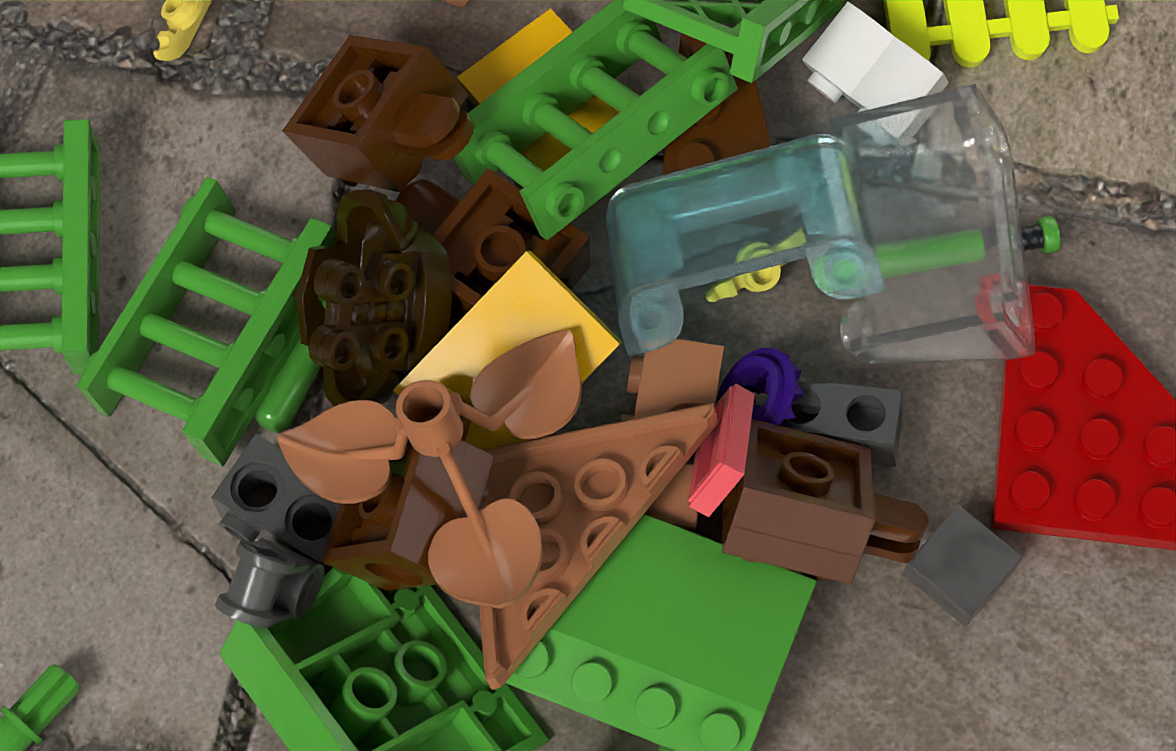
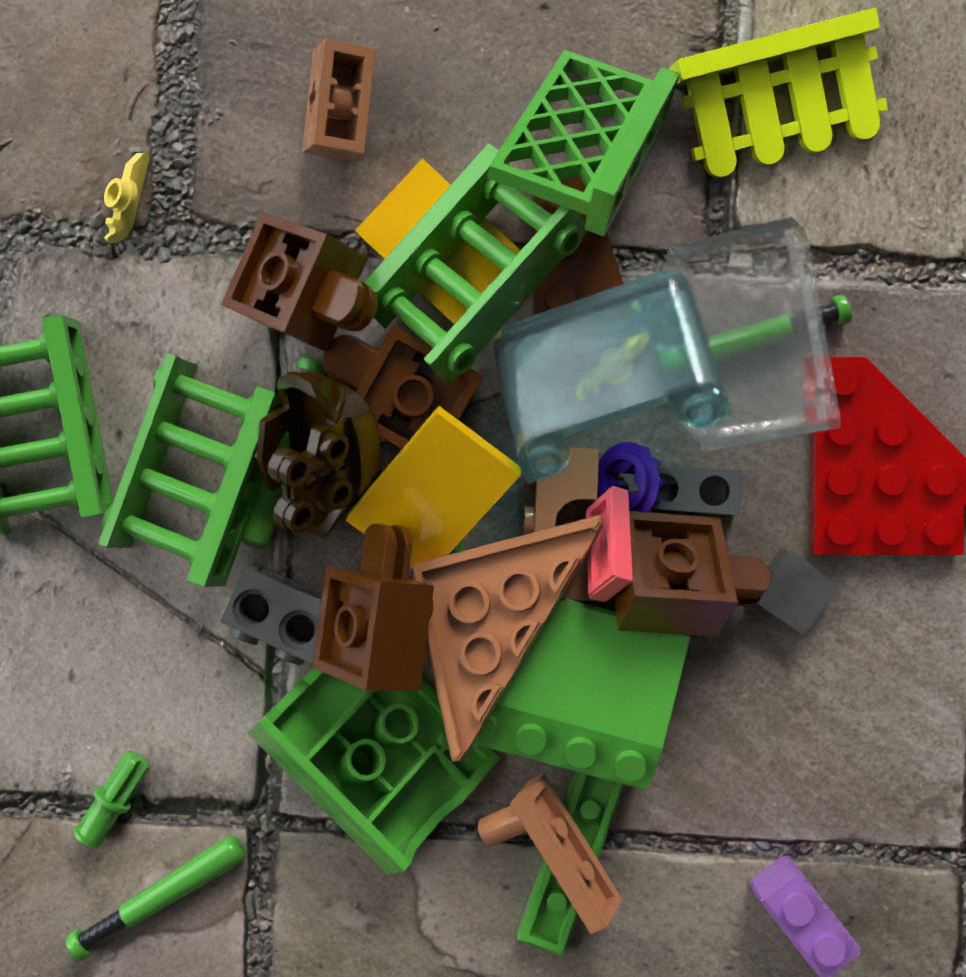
camera: 10 degrees left, 20 degrees up
(270, 585) = (274, 696): dark grey piece -> none
(491, 552) = (319, 594): nougat plant -> none
(868, 64) = (692, 188): white brick -> none

